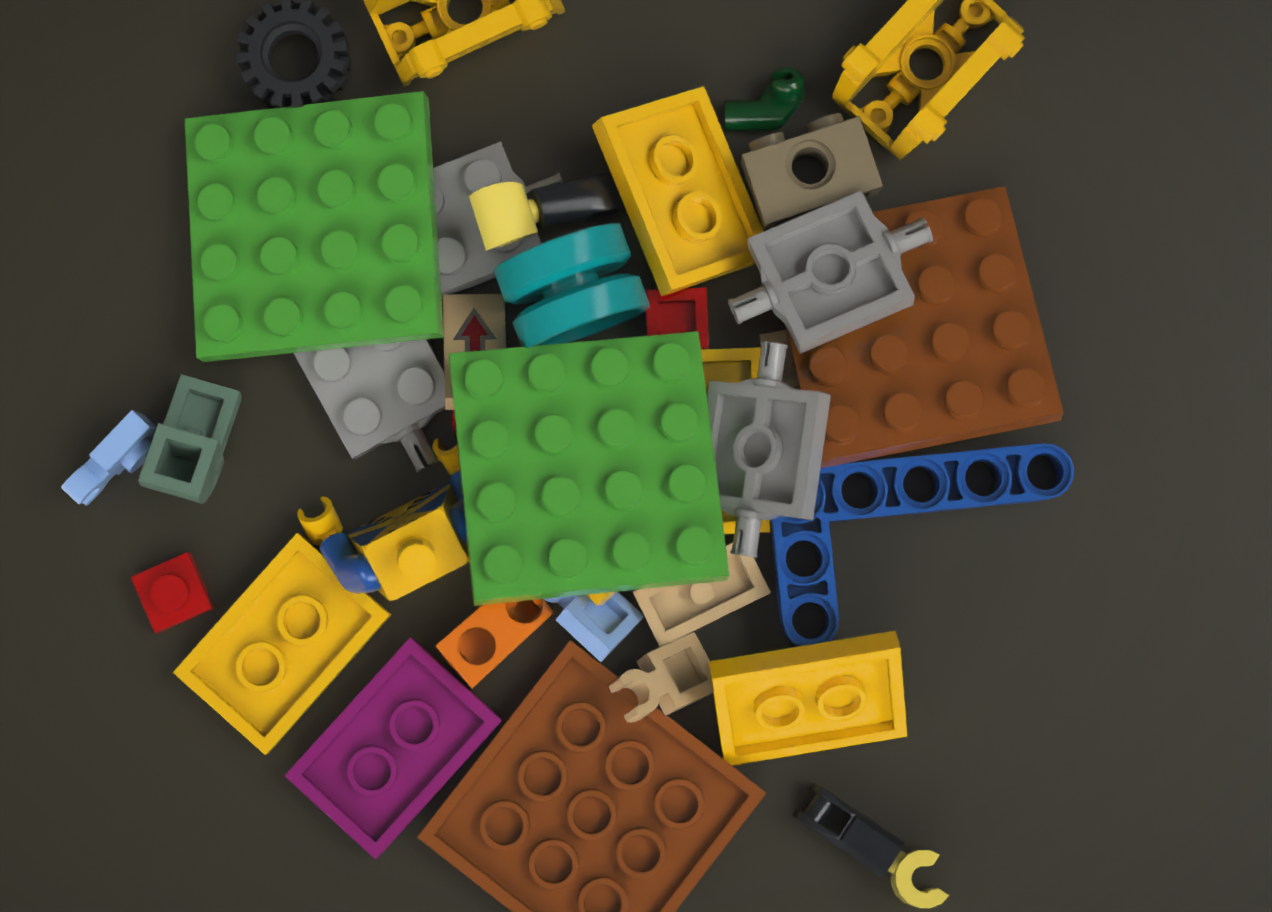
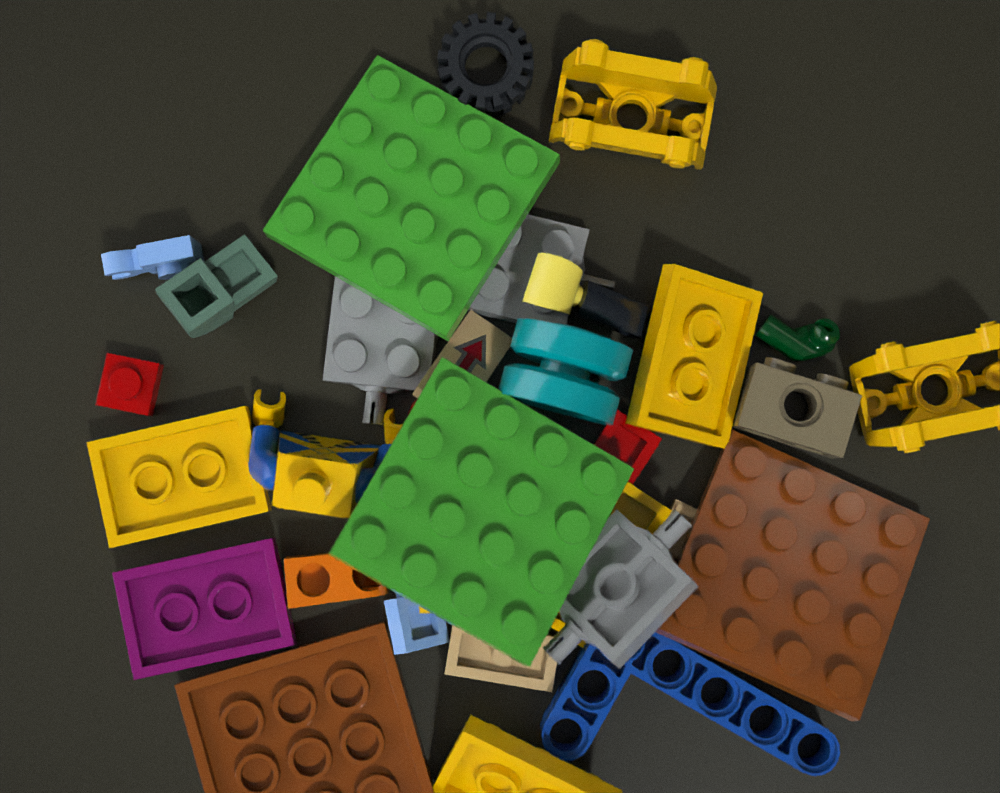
camera: 40 degrees right, 0 degrees up
(668, 677) = (436, 703): tan plate -> none
(830, 271) = (762, 494): light grey plate -> none

